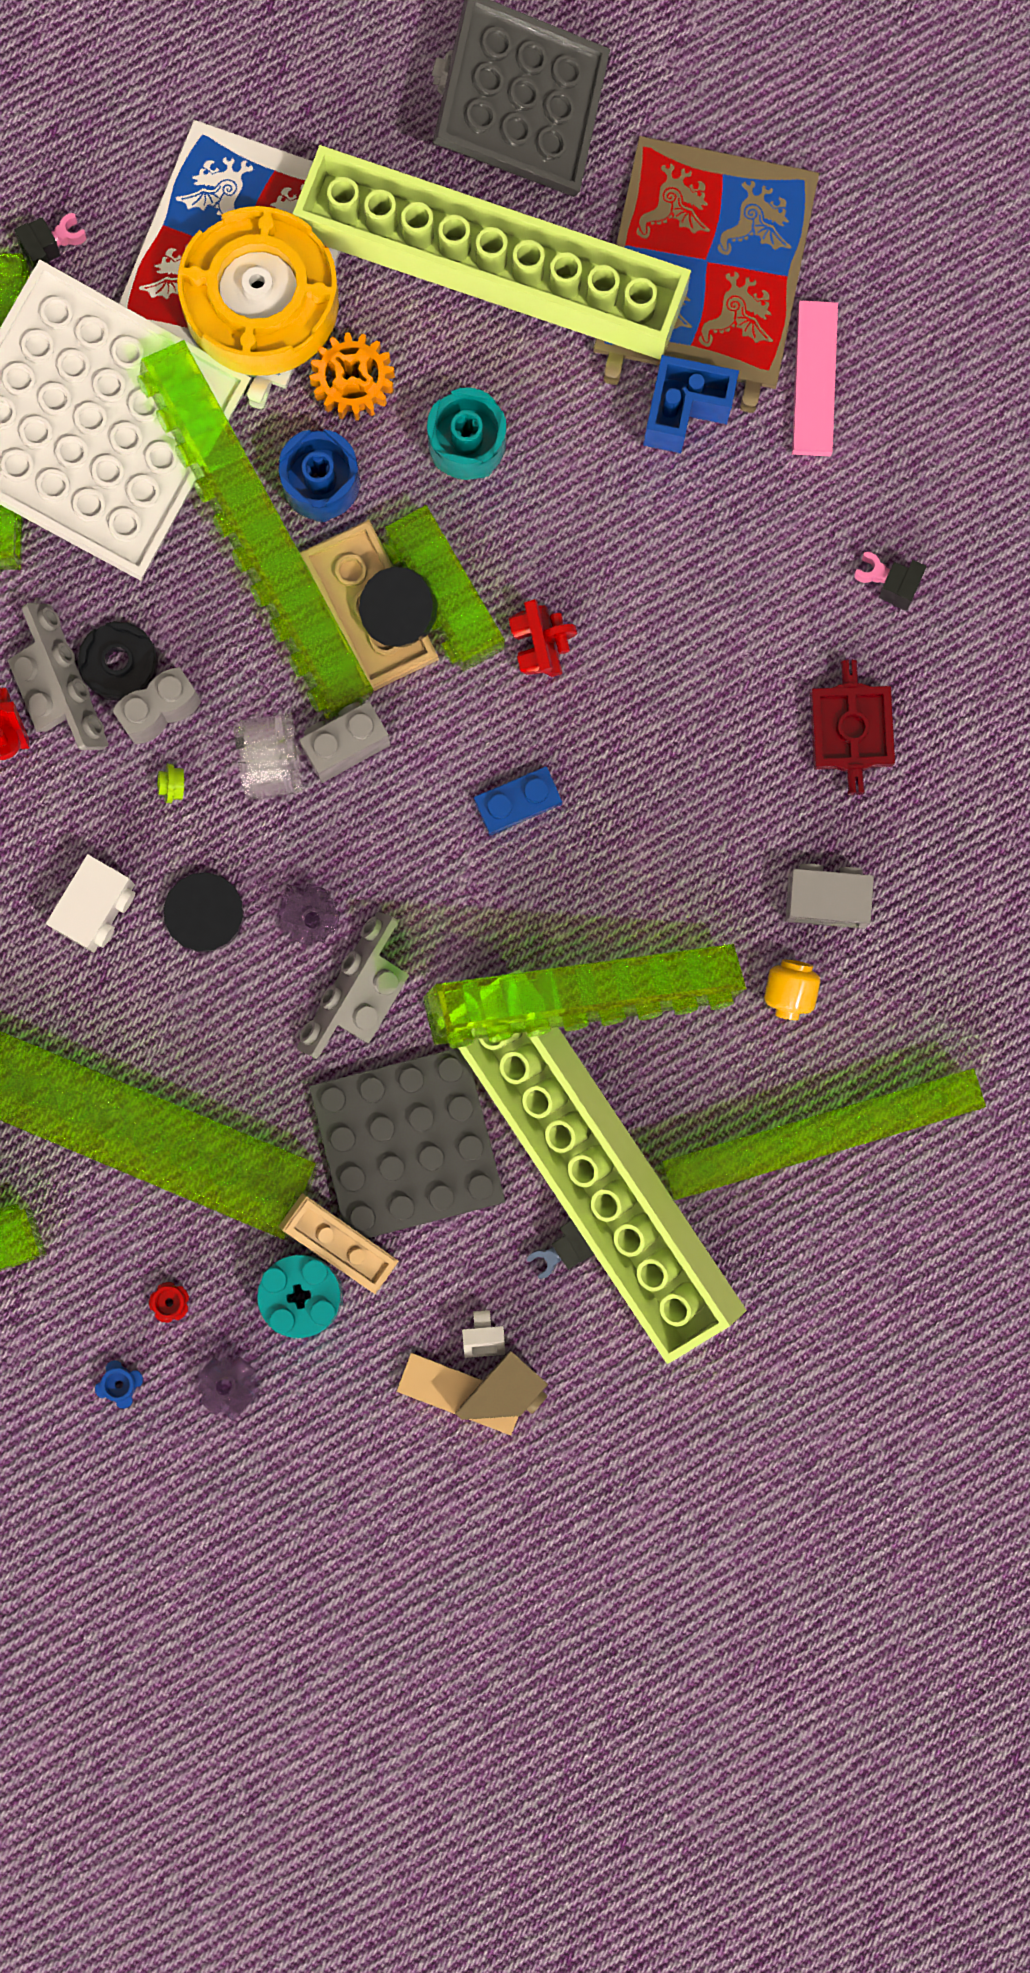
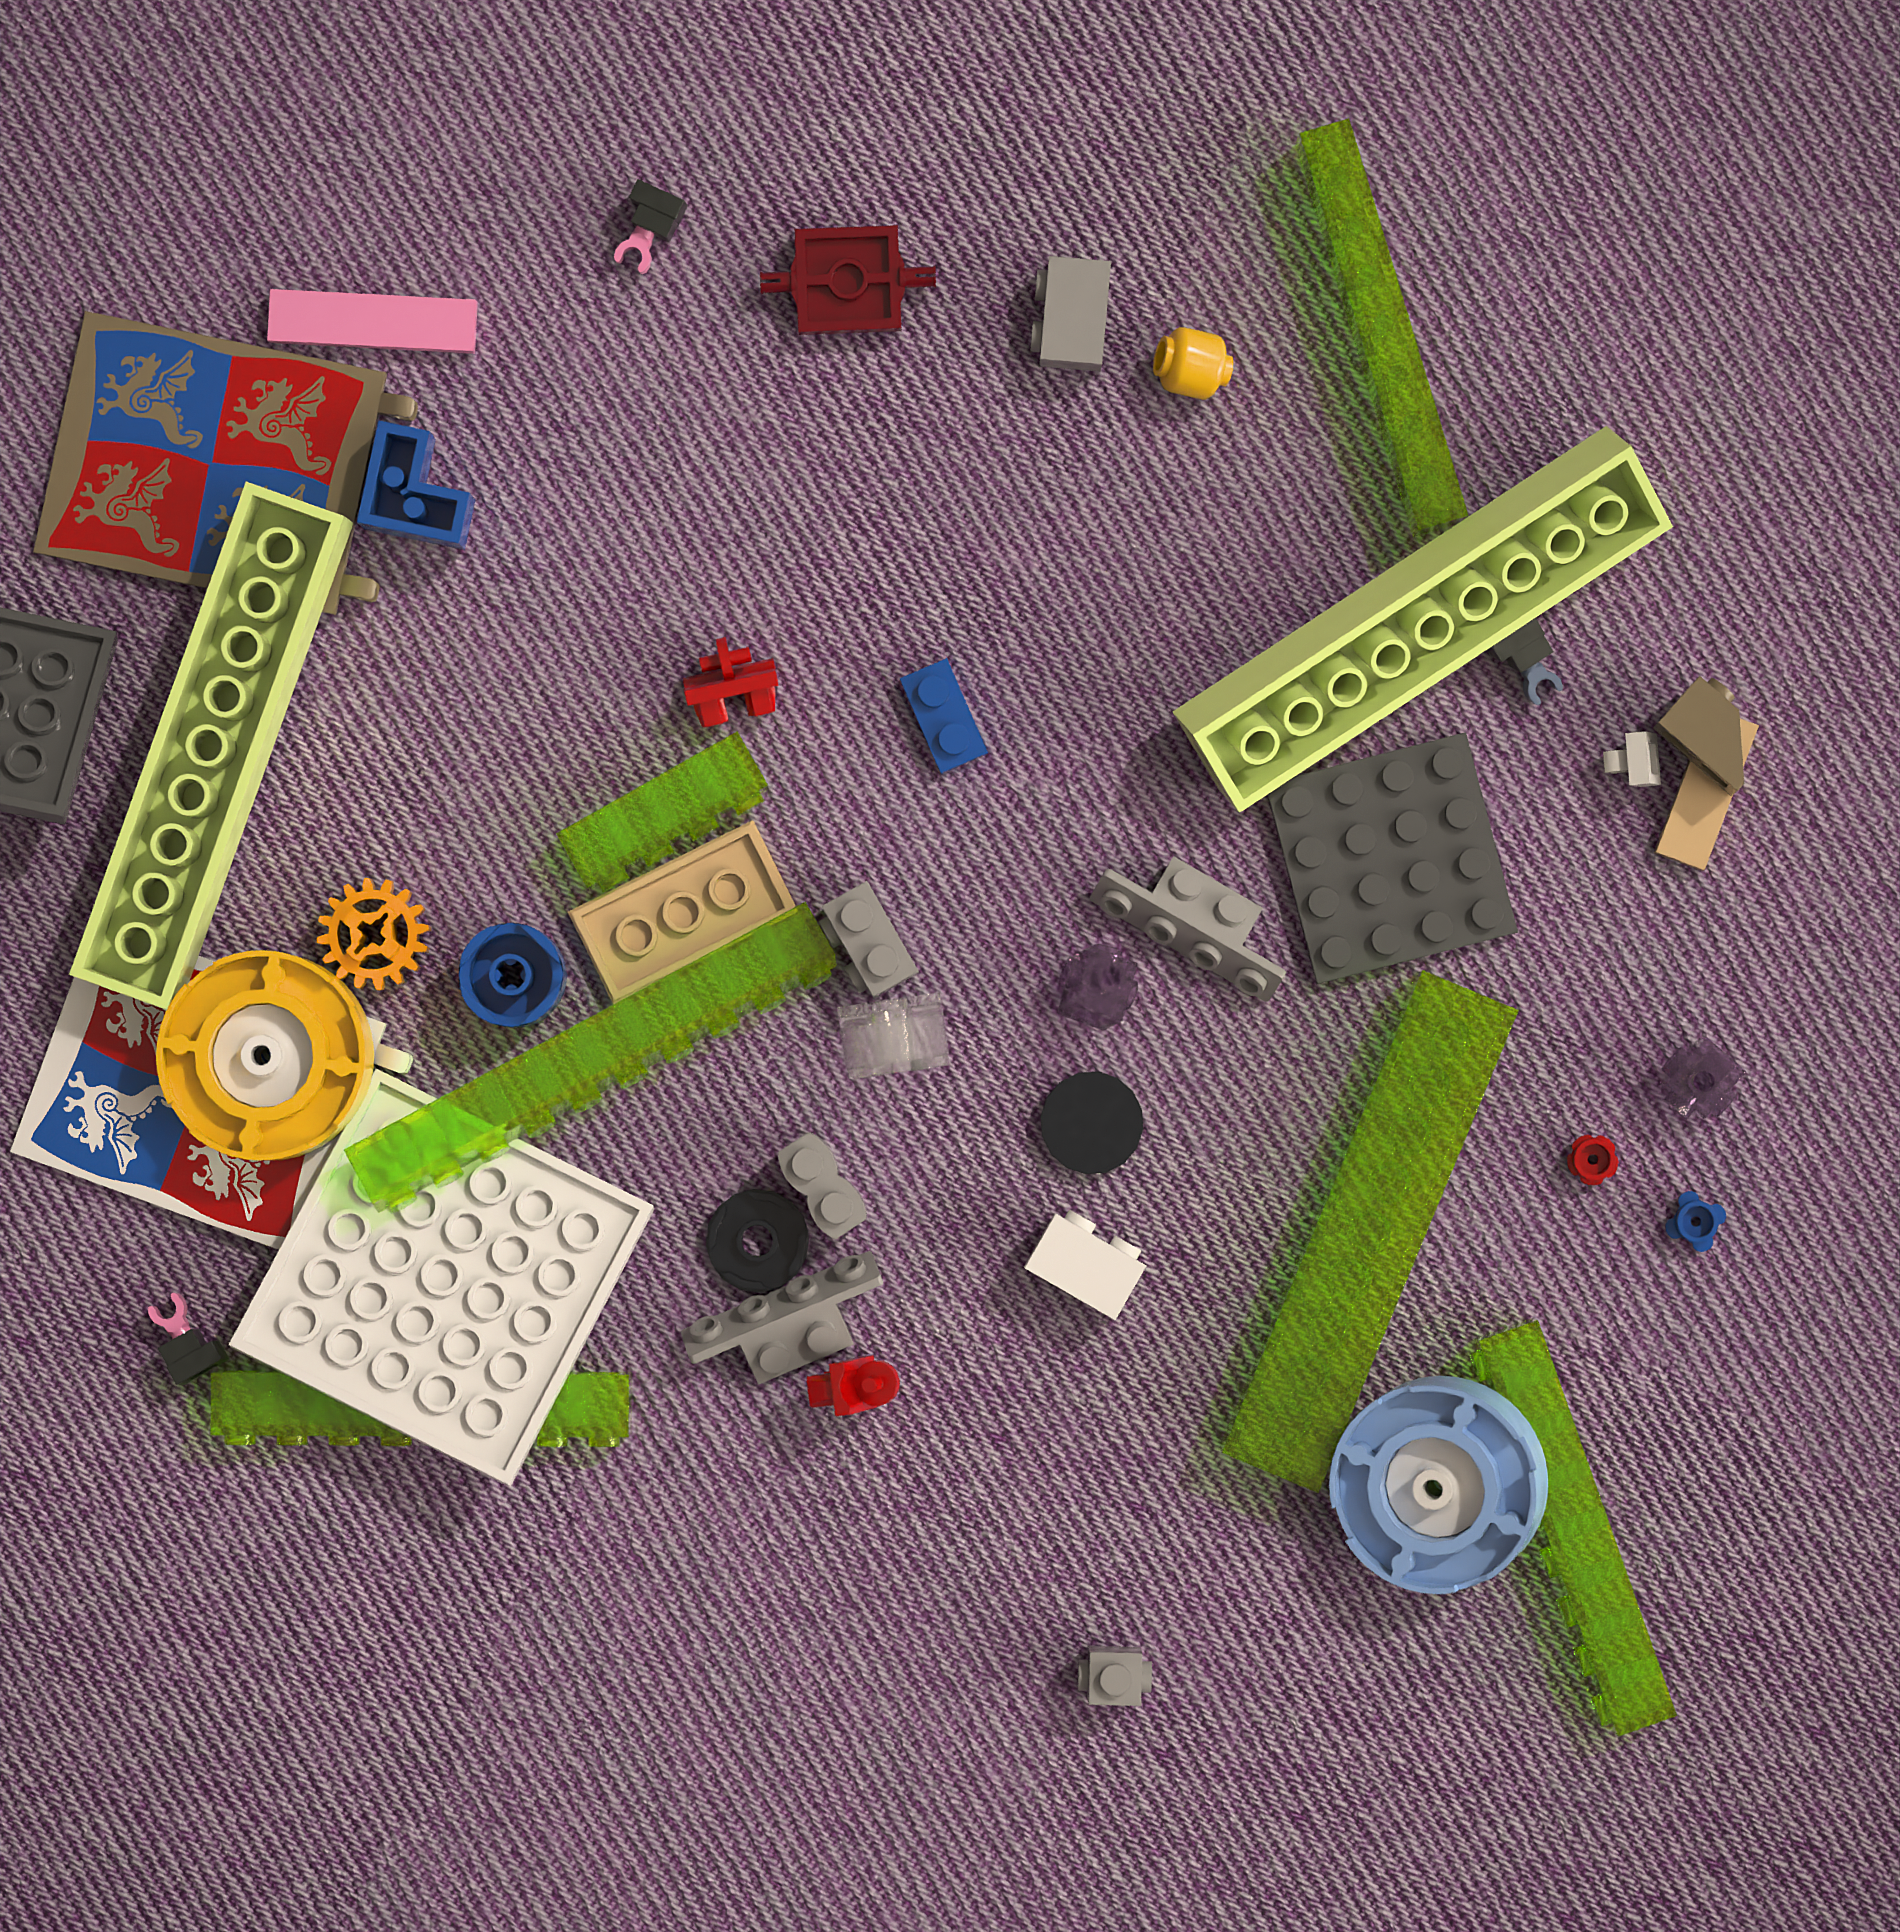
camera: 85 degrees left, 5 degrees up
(171, 783) = (923, 1166): lime plate -> none
(287, 1316) = (1603, 965): teal brick -> none
(338, 1243) = (1521, 942): tan tile -> none
(398, 607) = (694, 869): black tile -> none
(473, 455) = (442, 755): teal brick -> none
(583, 994) = (1212, 625): clear neon green brick -> none

